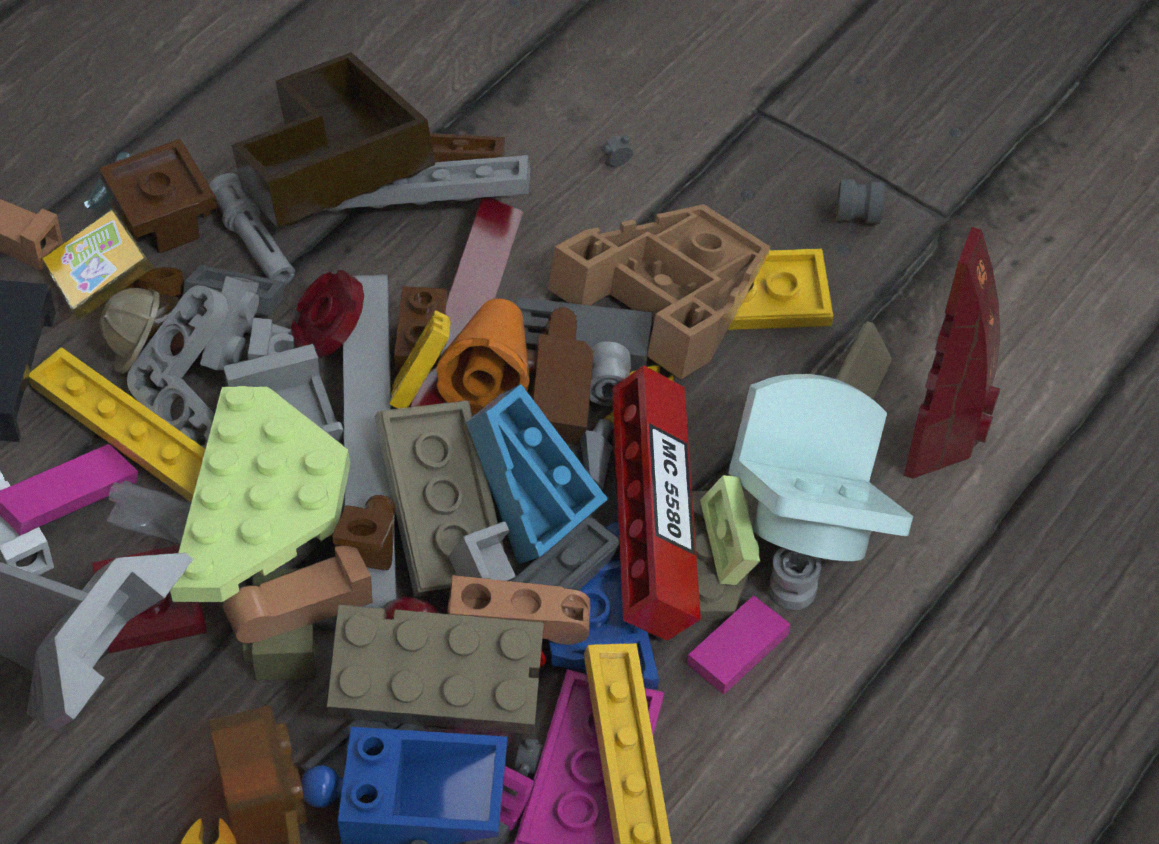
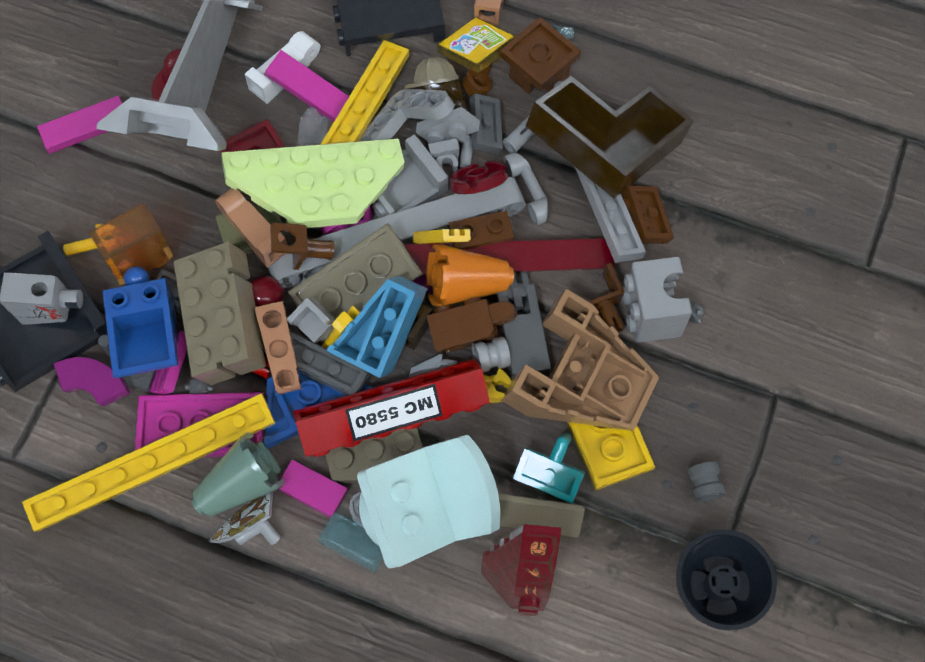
camera: 75 degrees right, 15 degrees up
(401, 266) = (518, 165): none -> light grey bar
(508, 510) = (339, 325): none -> yellow bar
(566, 218) = (606, 303): none -> reddish brown bracket
(596, 174) = (650, 300): none -> light grey piece
(706, 717) = (238, 477): none -> sand green cone
(730, 530) = (379, 455): yellowish green plate -> none
(769, 721) = (249, 522): none -> shield
(800, 353) = (550, 473): none -> teal plate
(834, 610) = (351, 542): none -> clear light blue plate
(1008, 198) = (738, 568): none -> black piece

